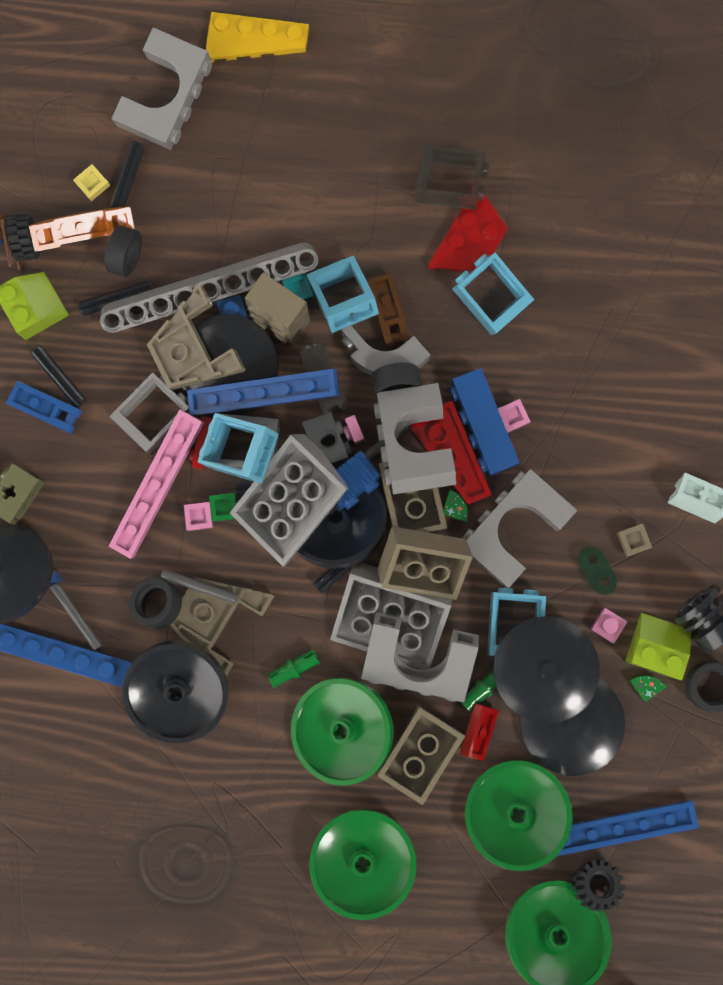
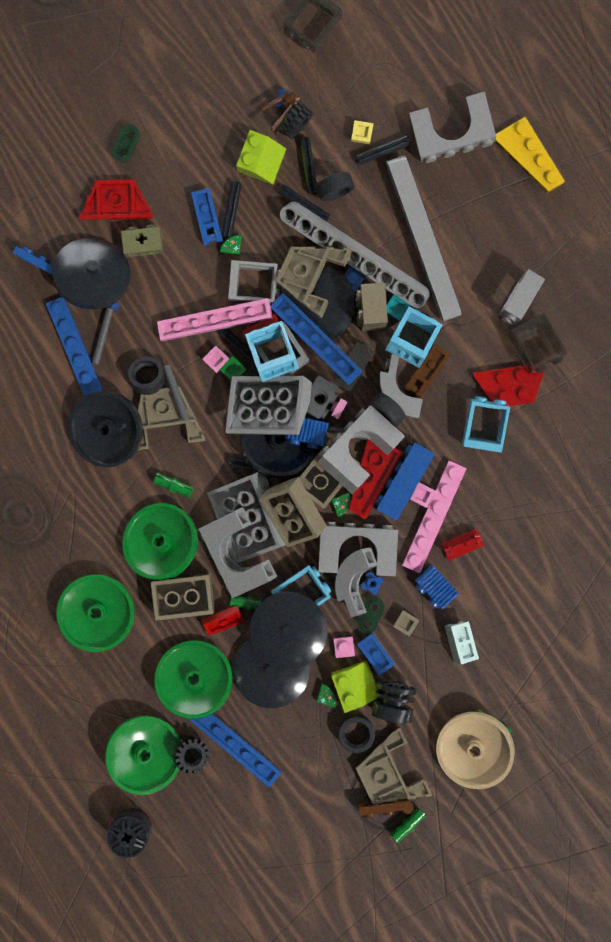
camera: 50 degrees right, 5 degrees up
(79, 227) = (329, 148): slope -> none
(82, 264) = (308, 165): none -> black axle
(95, 405) = (232, 245): none -> green tile
(203, 481) = (236, 343): none -> black axle
(250, 206) = (423, 238): none -> light grey beam
(390, 154) = (521, 297): none -> light grey window
(540, 562) = (348, 580): none -> light grey arch
(545, 423) = (434, 516): none -> bright pink plate
(562, 549) = (371, 578): none -> blue plate
(597, 416) = (462, 544): none -> red hinge
(621, 478) = (436, 587): none -> blue brick
(642, 597) = (375, 654): none -> blue plate

